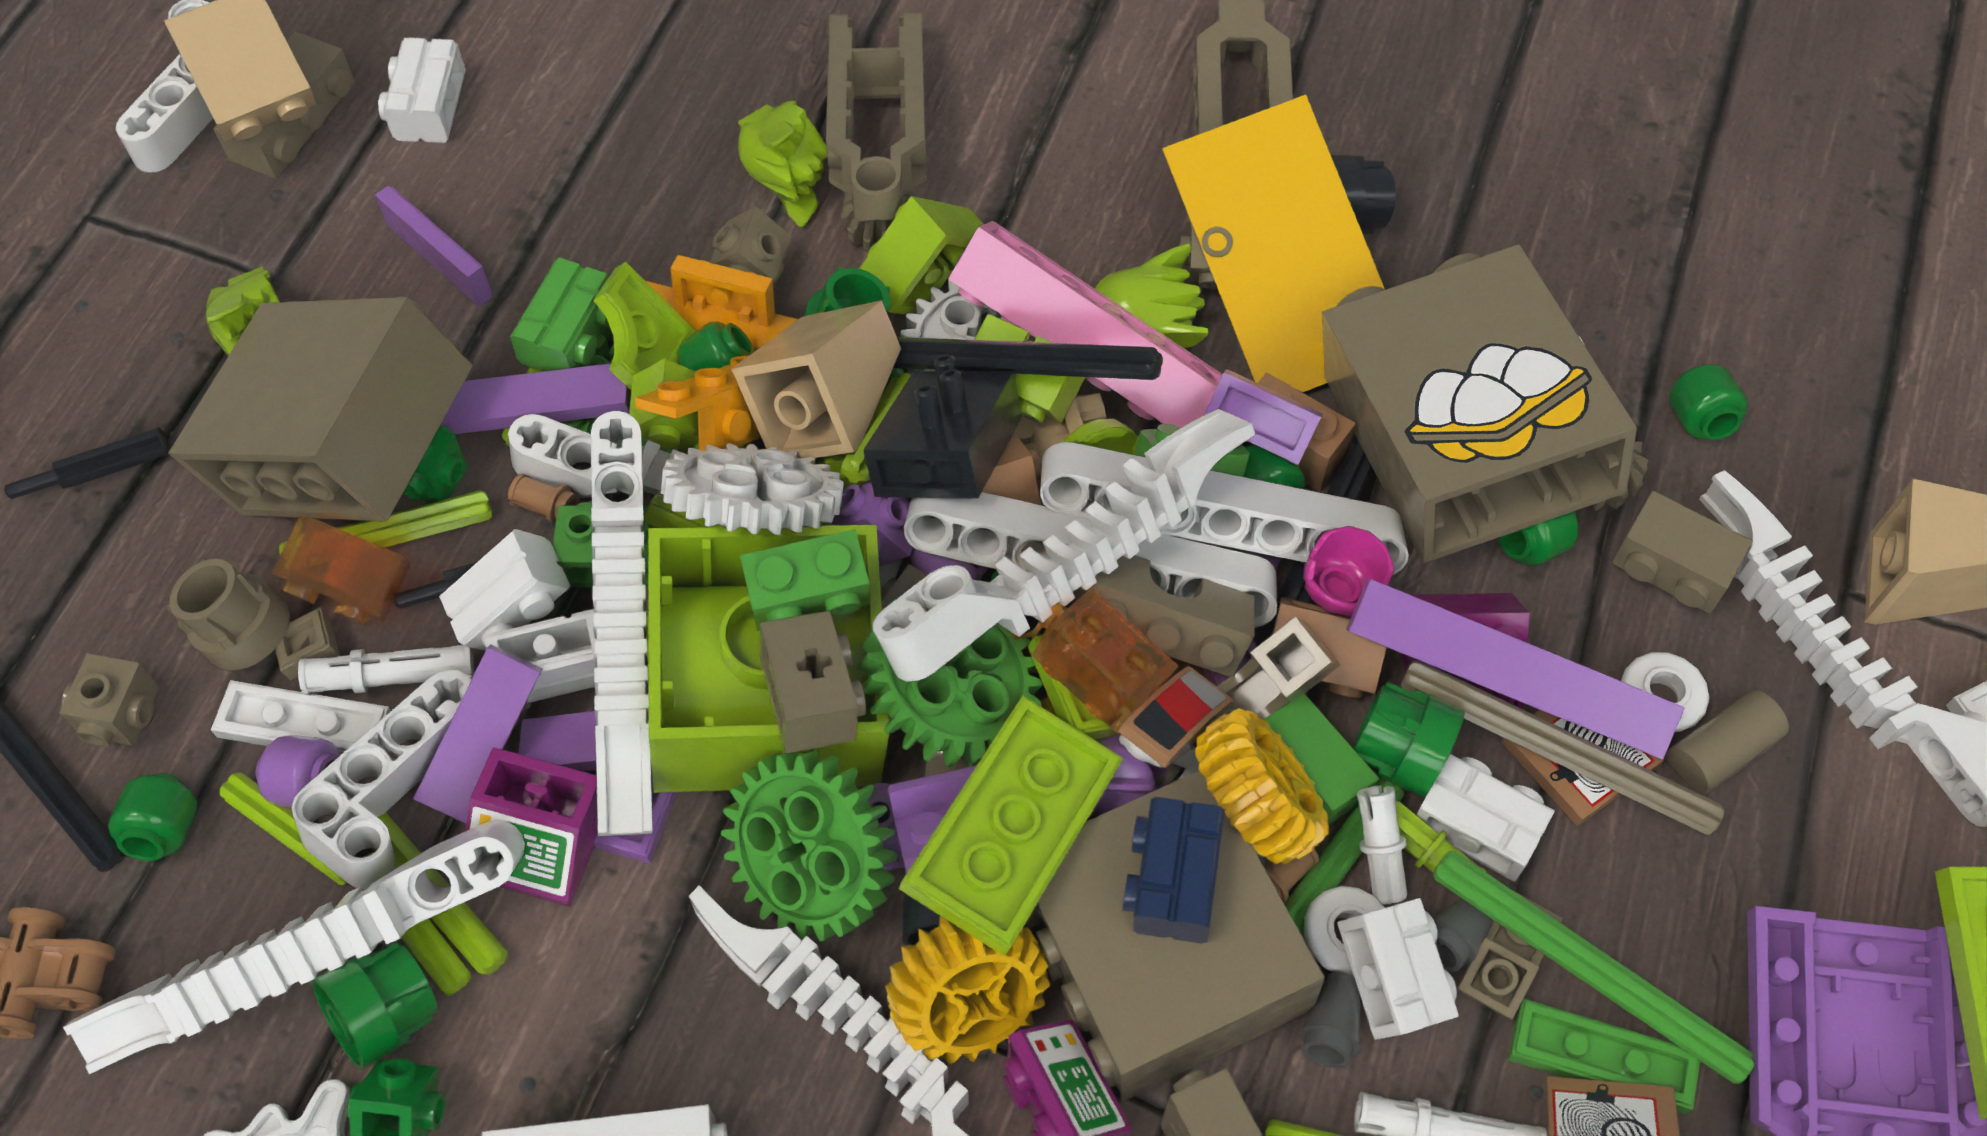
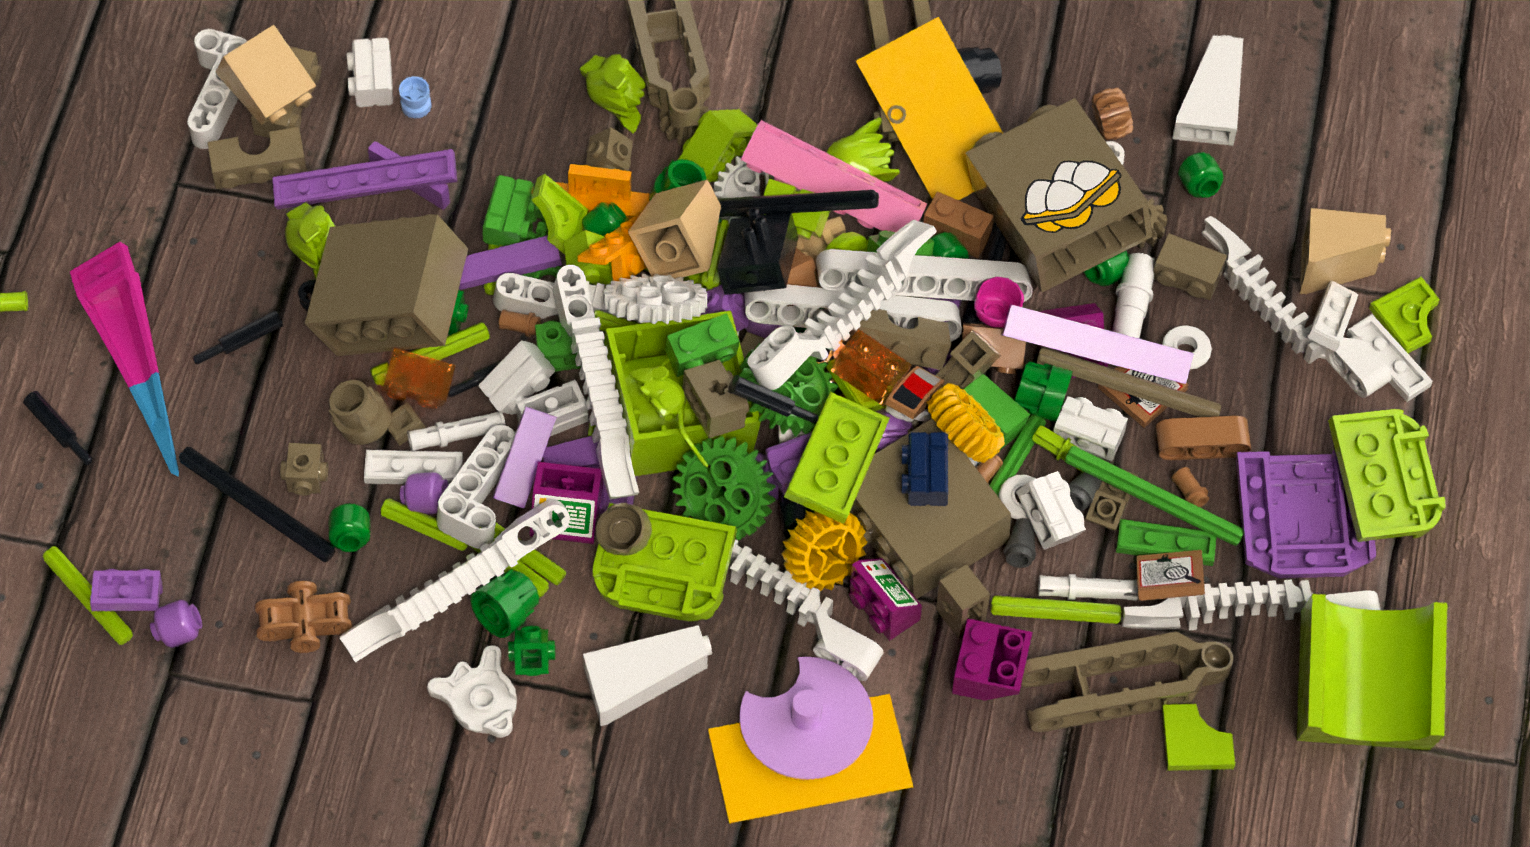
camera: 10 degrees left, 0 degrees up
(251, 194) = (235, 167): none -> dark tan arch
(359, 240) = (364, 179): none -> medium lavender tile
(477, 132) = (415, 97): none -> light blue wheel
(603, 902) = (623, 529): none -> dark tan hair
(671, 969) = (676, 572): none -> lime plate
(722, 668) = (666, 397): none -> lime animal
(903, 696) = (769, 399): none -> black axle
(1278, 421) = (948, 220): medium lavender tile -> none
(1383, 843) = (1035, 447): white axle -> none
(1573, 281) = (1112, 113): none -> medium nougat gear
(1580, 589) = (1134, 295): none -> white piece
(1657, 956) = (1190, 487): none -> medium nougat pin
(1687, 863) = (1202, 437): none -> medium nougat beam
(1728, 741) = (1223, 370): dark tan brick -> none
(1737, 285) = (1212, 100): none -> white slope
(1934, 673) = (1333, 316): none -> white tile

